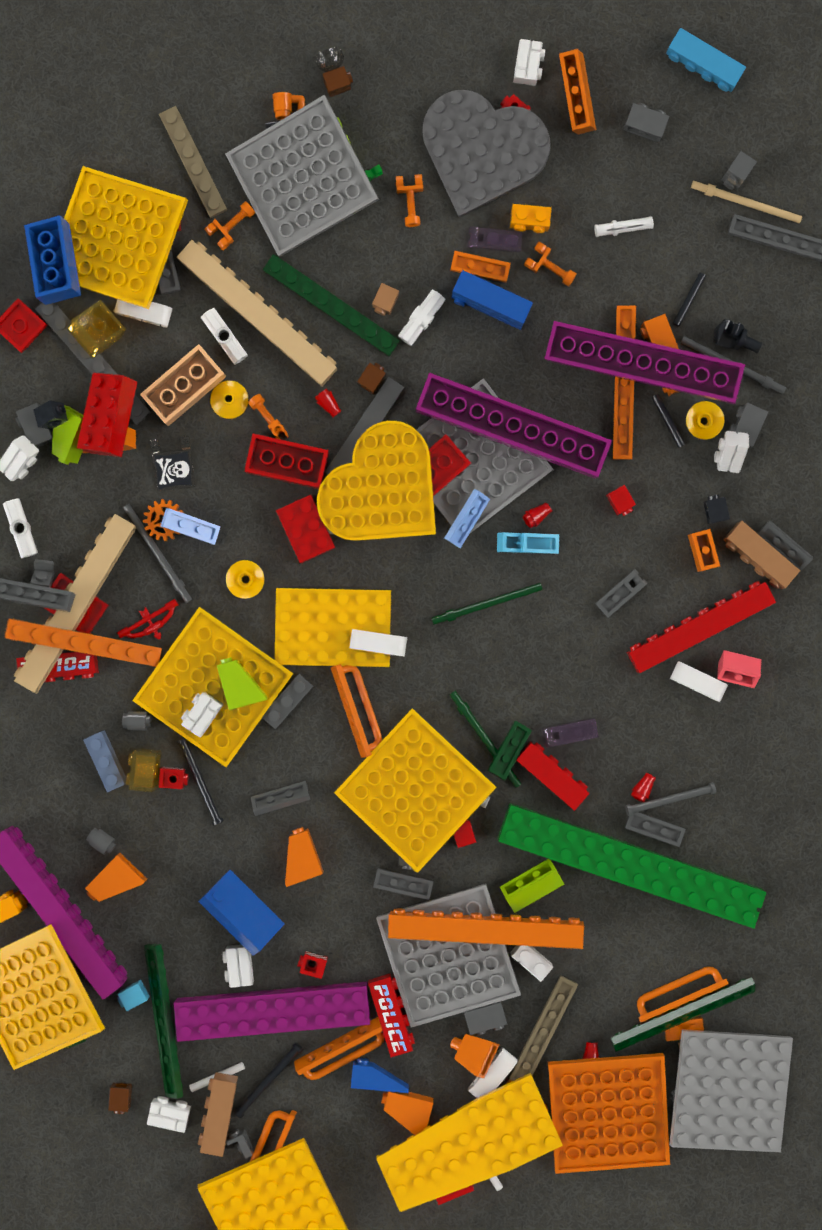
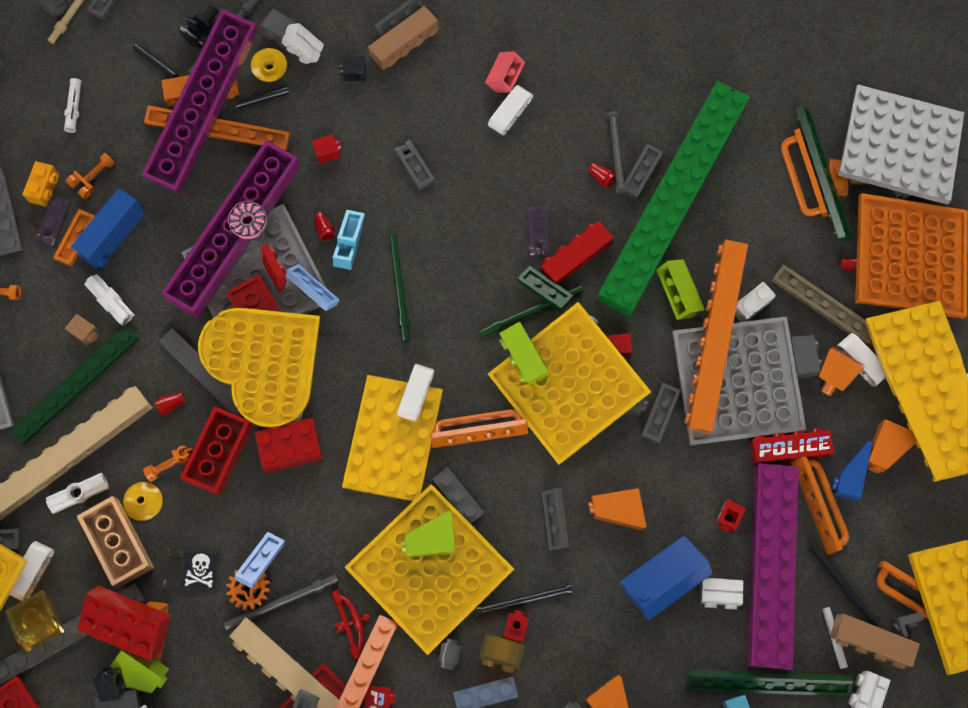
camera: 80 degrees left, 15 degrees down
(201, 714) = (454, 582): white brick -> none
(237, 572) = (319, 508): yellow dish -> none
(372, 377) = (155, 356): reddish brown brick -> none
(433, 742) = (523, 354): none -> lime brick
(472, 482) = (274, 270): none -> red plate
(520, 430) = (243, 210): none -> tile
(700, 627) = (460, 100): red brick -> none
(703, 550) = (388, 84): orange brick -> none

